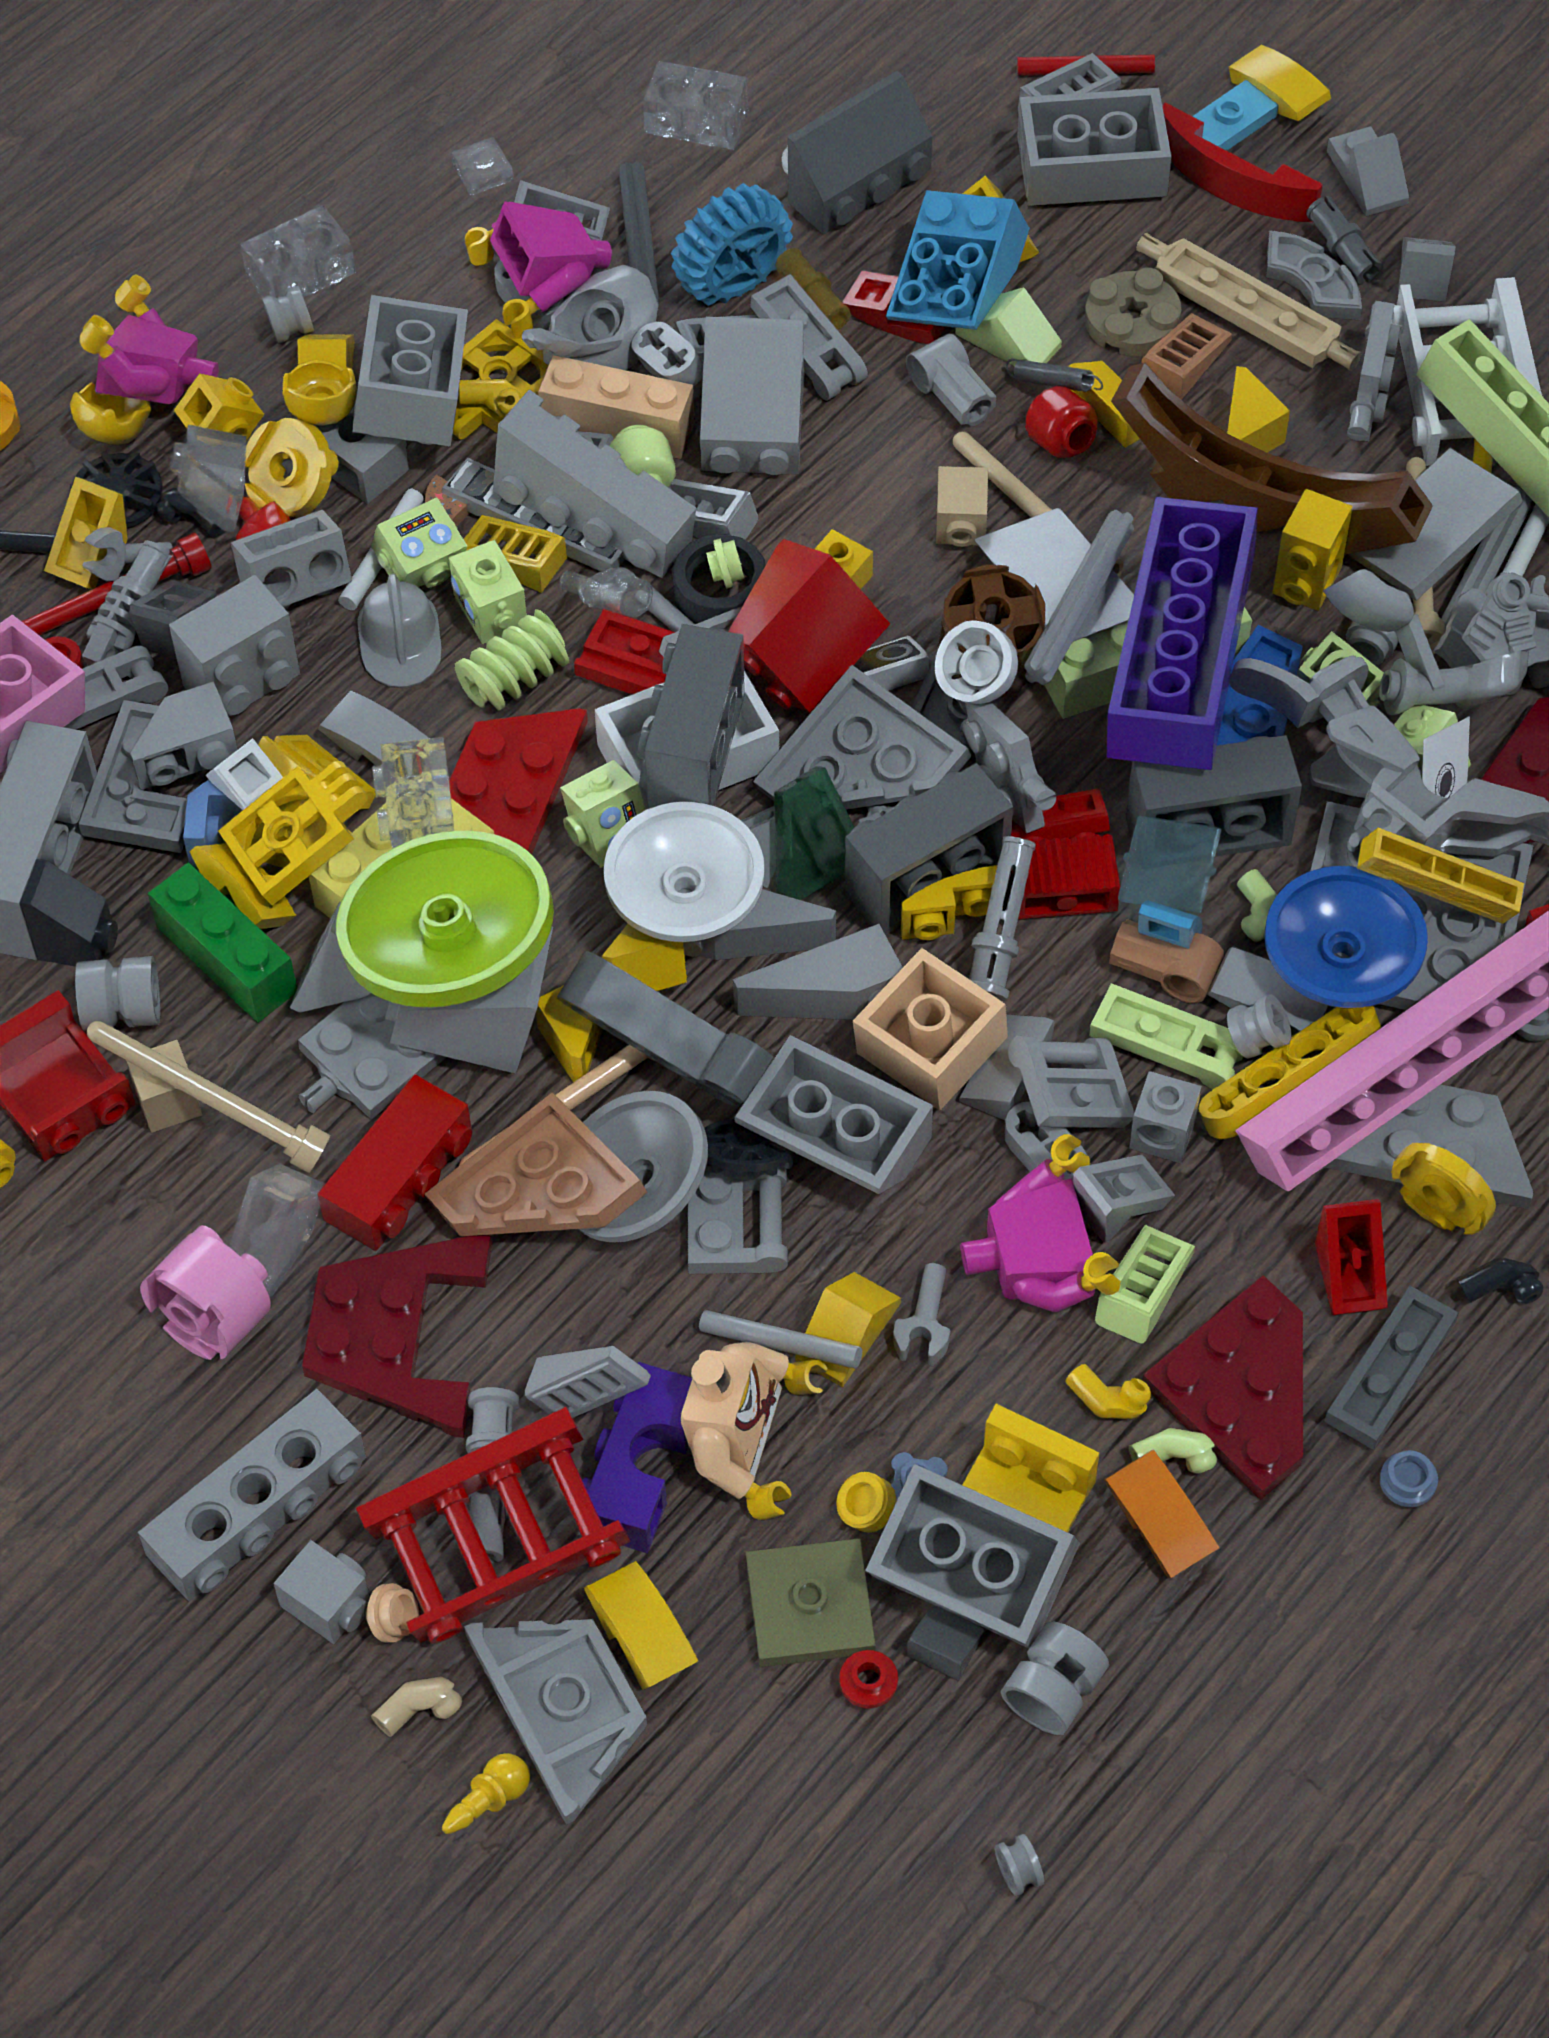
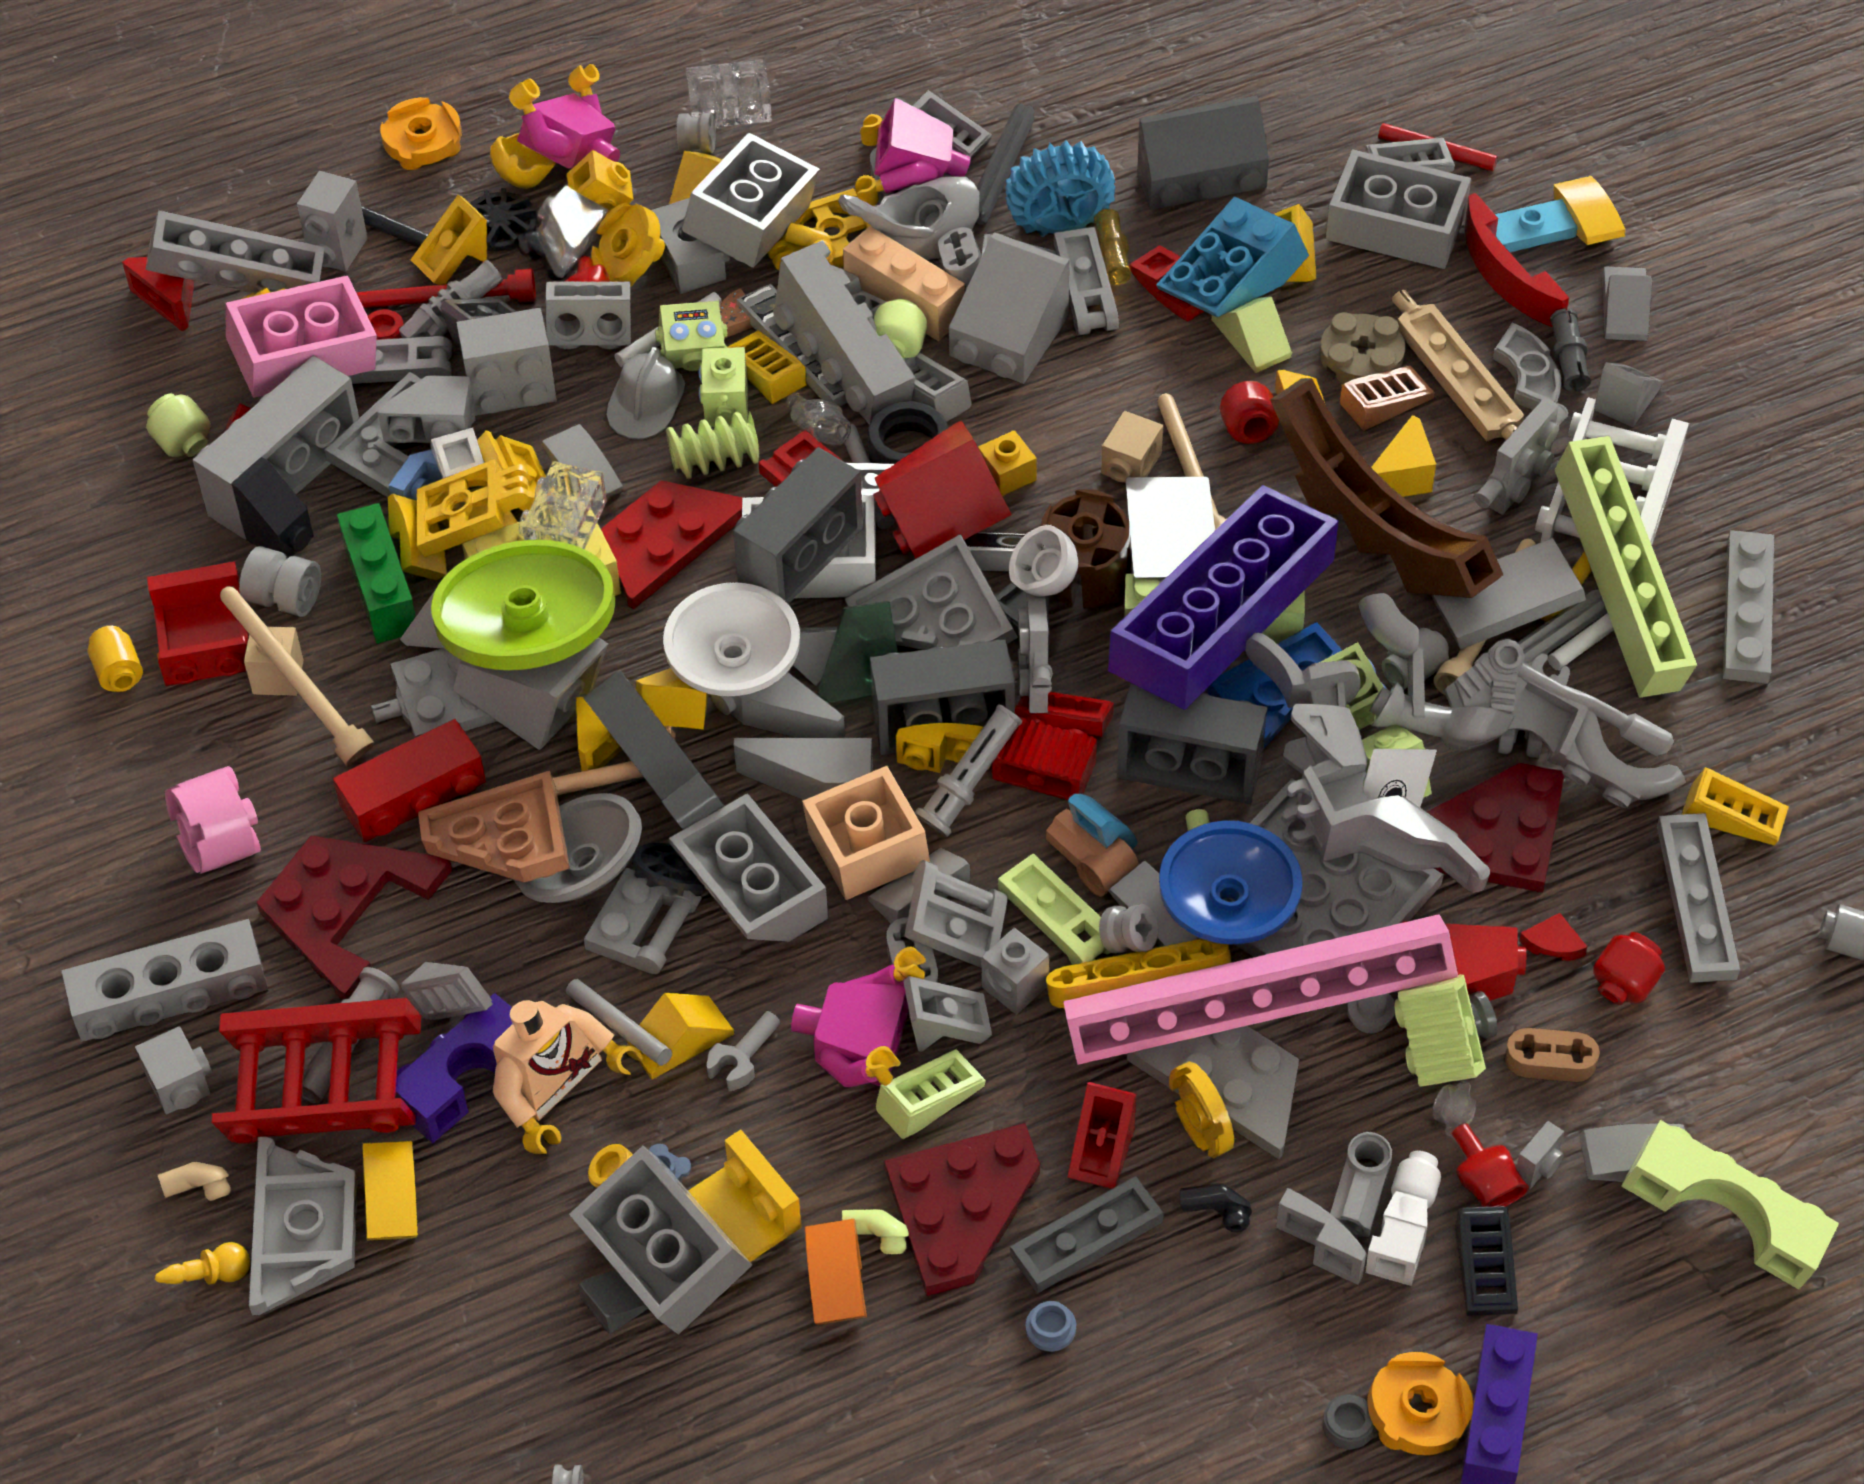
camera: 25 degrees right, 5 degrees down
(117, 553) = (466, 264): light grey bar -> none
(276, 1220) = (293, 791): clear slope -> none
(320, 392) = (668, 192): yellow hair -> none
(389, 1611) = (209, 1099): light nougat plate -> none
(482, 166) = (911, 72): clear plate -> none
(599, 807) = (707, 566): yellowish green head -> none
(695, 105) = (1101, 78): clear brick -> none
(725, 563) = (913, 426): yellowish green plate -> none
(809, 1602) = (526, 1228): olive plate -> none
(864, 1694) = (537, 1315): red plate -> none
(947, 372) = (1181, 345): light grey piece -> none
(1053, 375) = (1261, 373): dark grey piece -> none
(1058, 1672) = (659, 1367): light grey wheel -> none
(1079, 597) = (1163, 547): light grey axle -> none
(1109, 1401) = (846, 1171): yellow arm -> none
(1169, 863) = (1128, 777): clear light blue piece -> none
(1312, 549) = (1392, 566): yellow brick -> none
(1440, 875) = (1336, 864): yellow piece -> none

